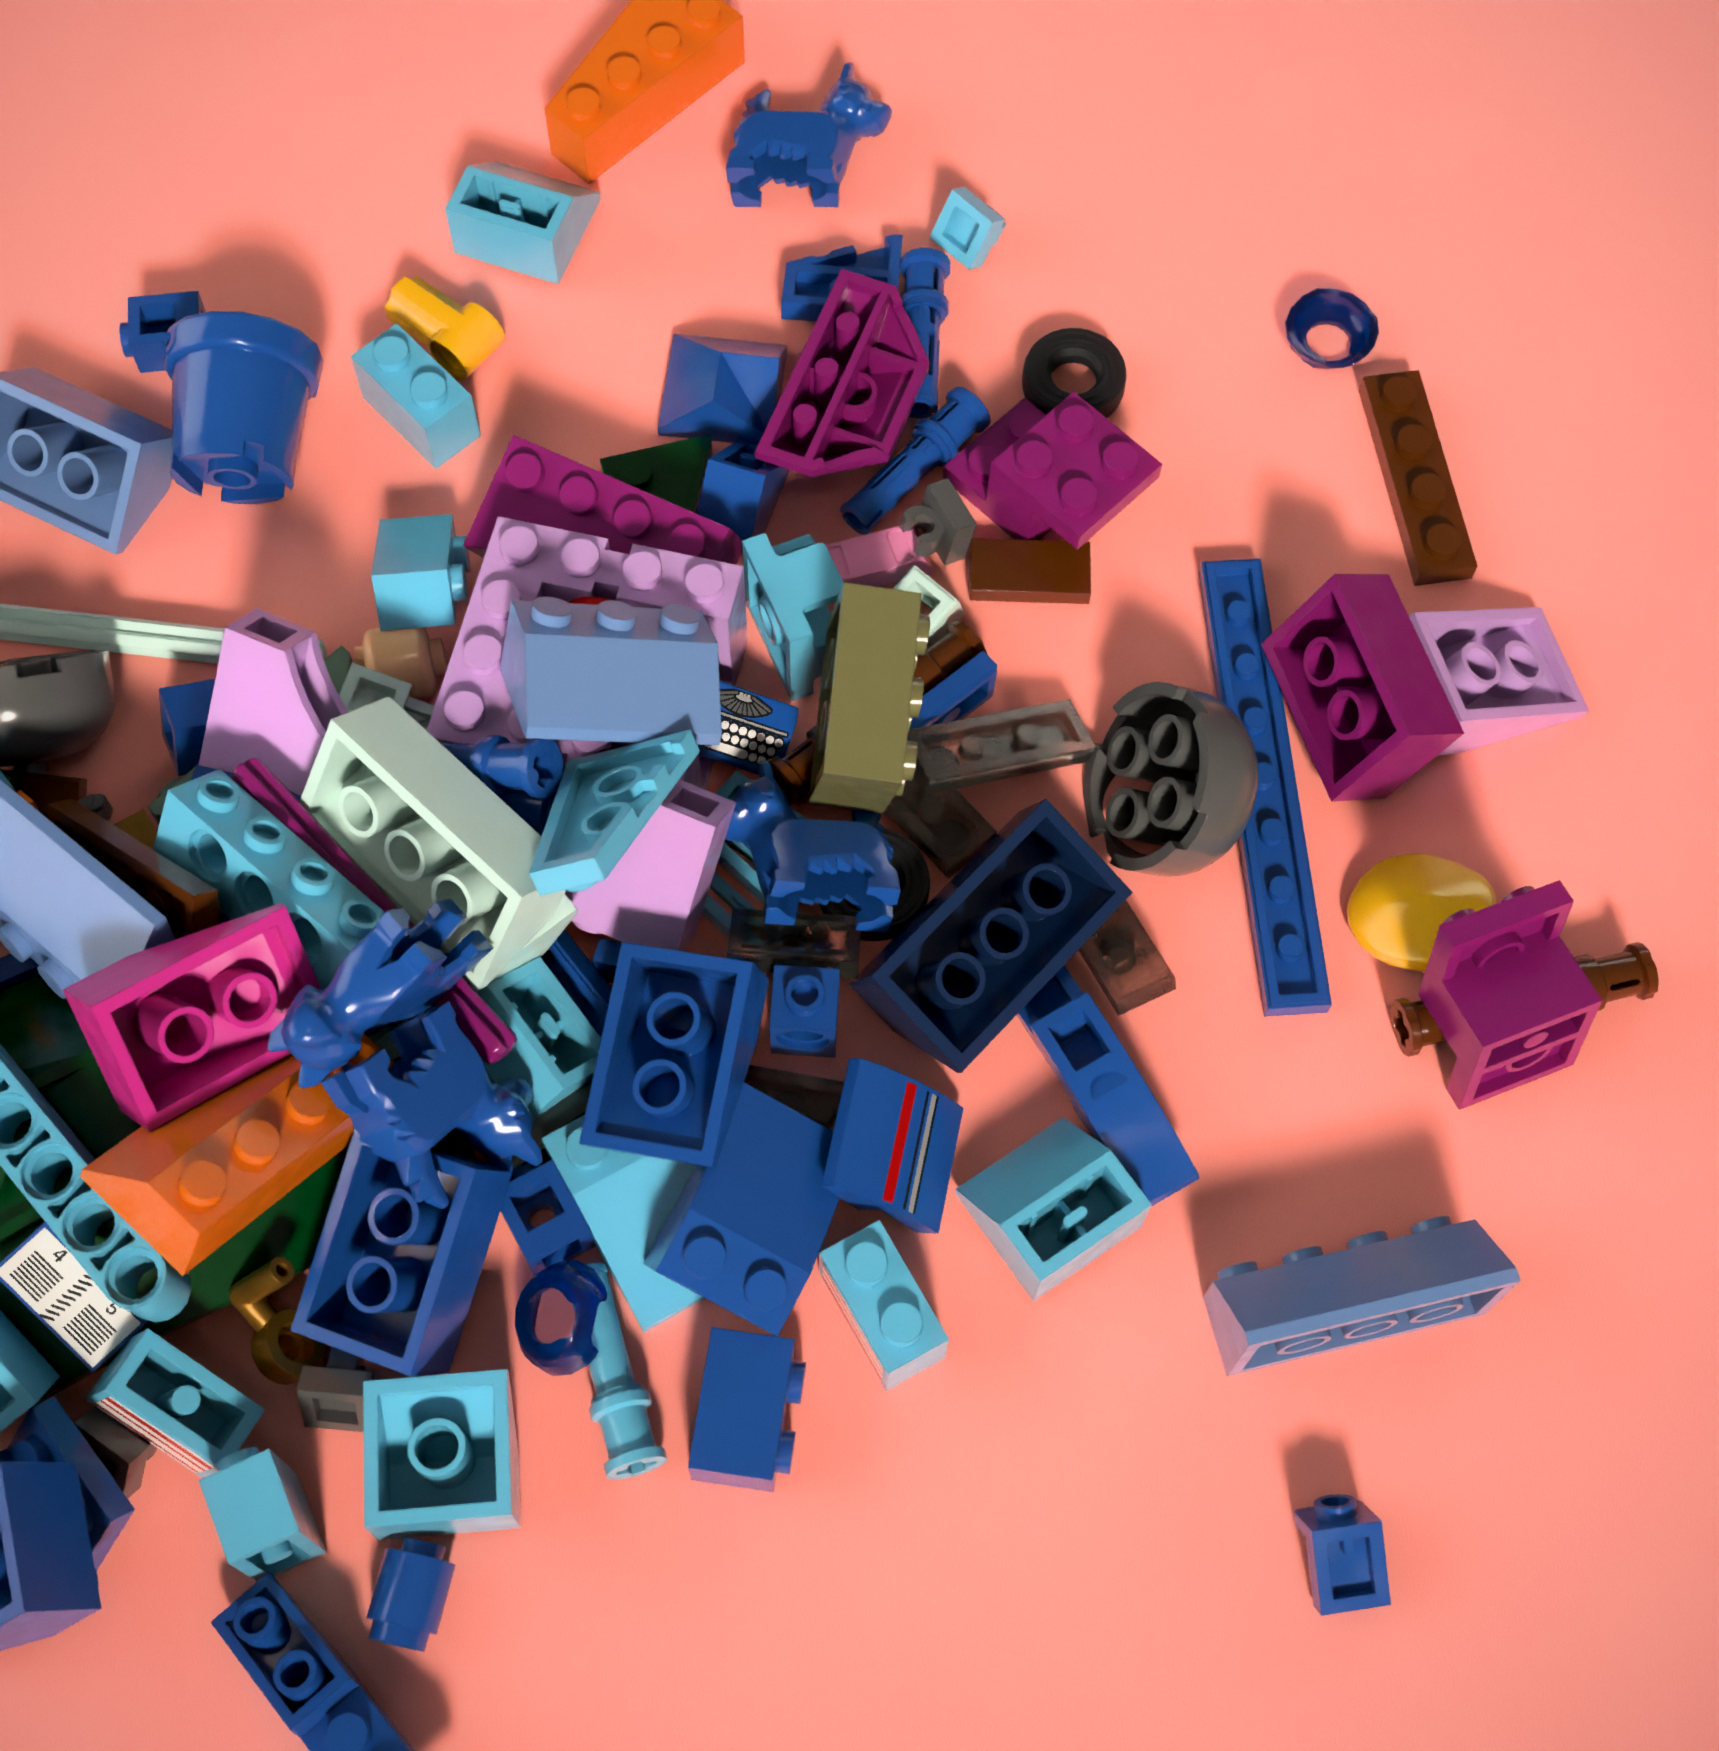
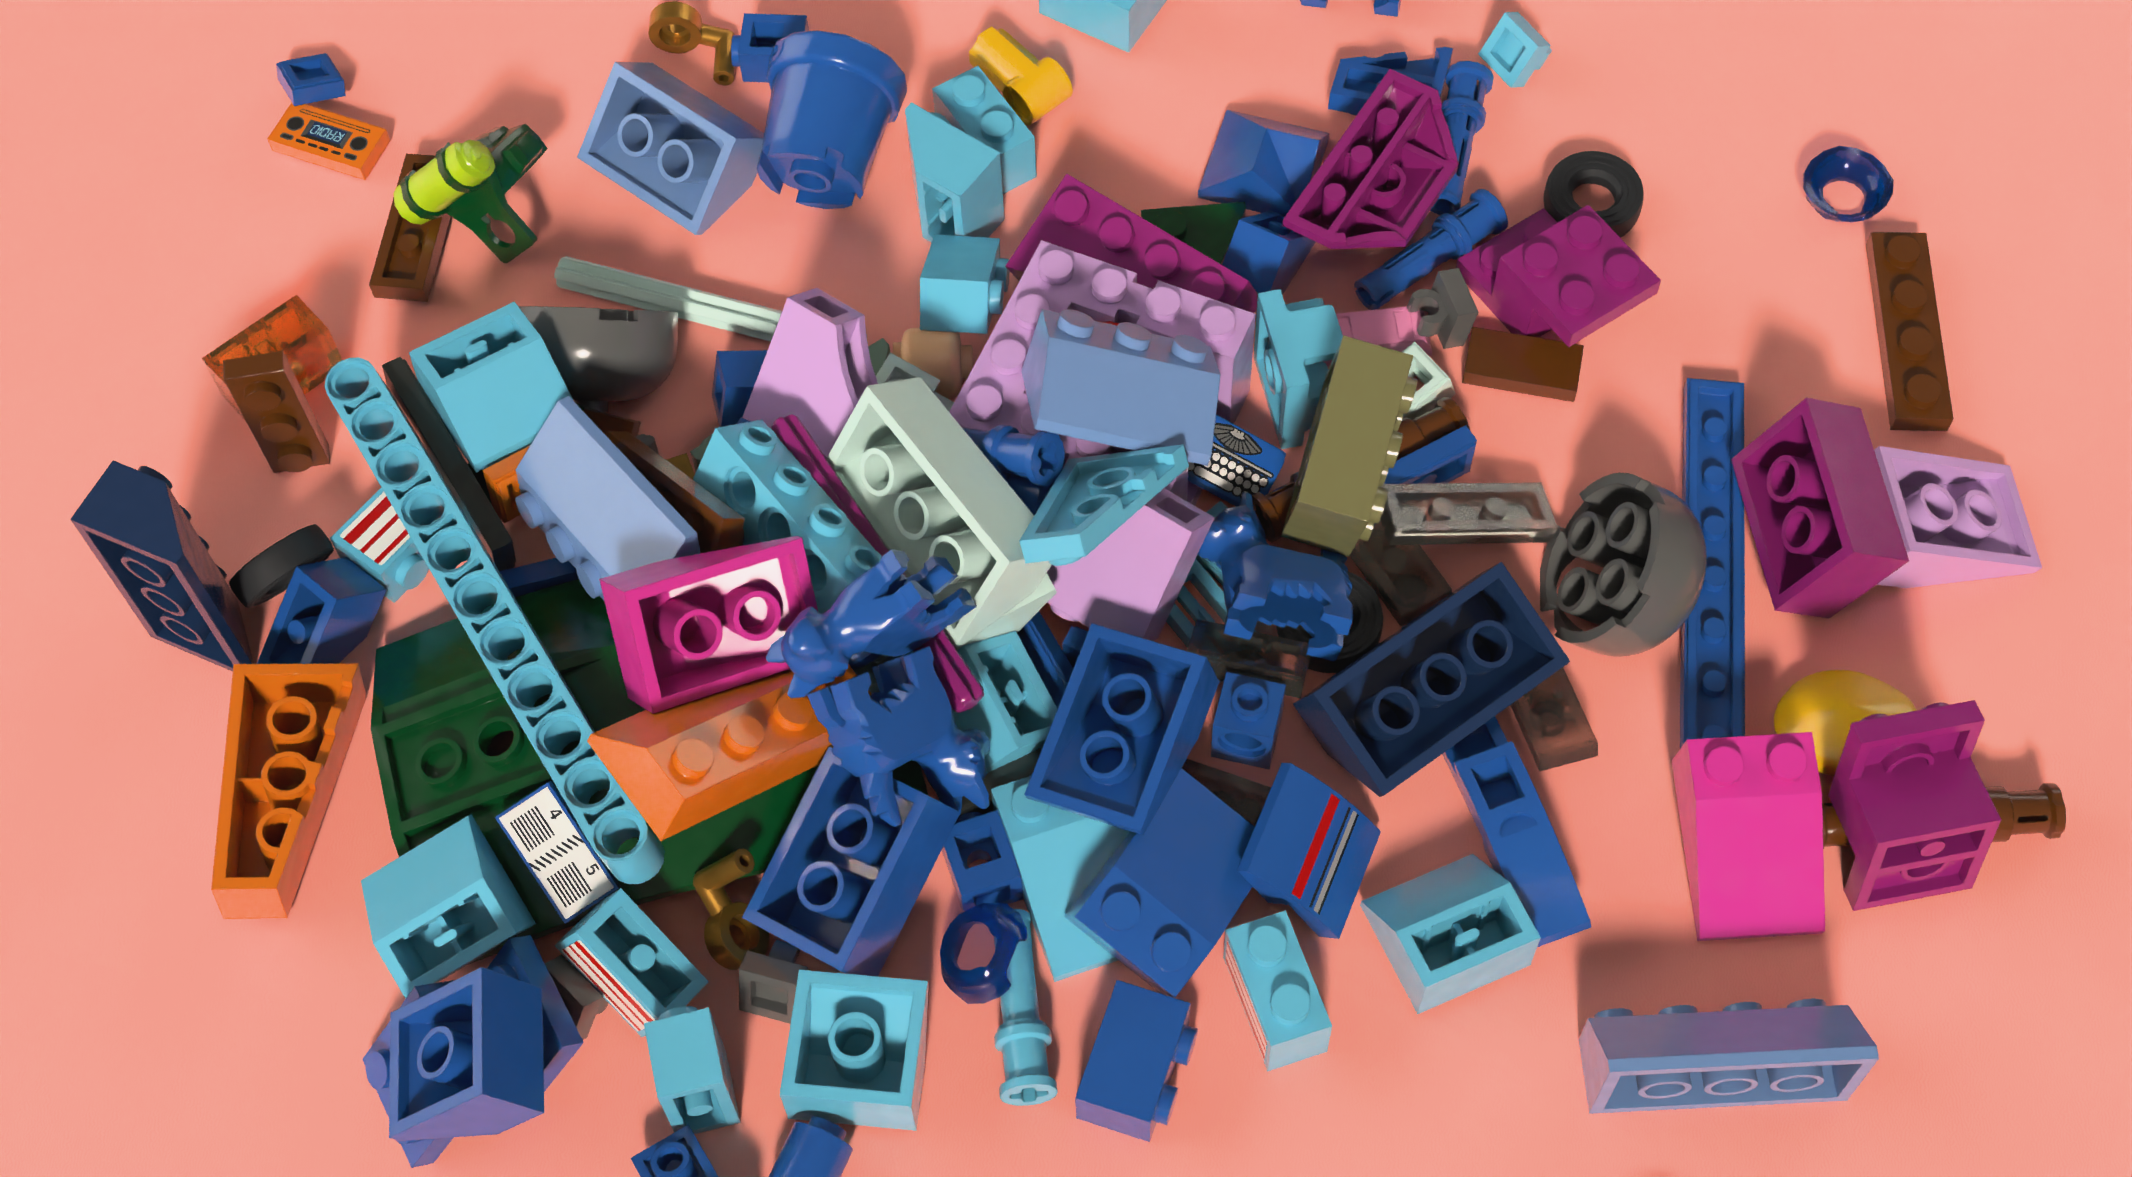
camera: 15 degrees right, 5 degrees down
(59, 324) = (679, 29): none -> pearl gold plate
(390, 453) = (953, 177): none -> medium azure slope
(1347, 1050) = (1752, 835): none -> dark pink slope

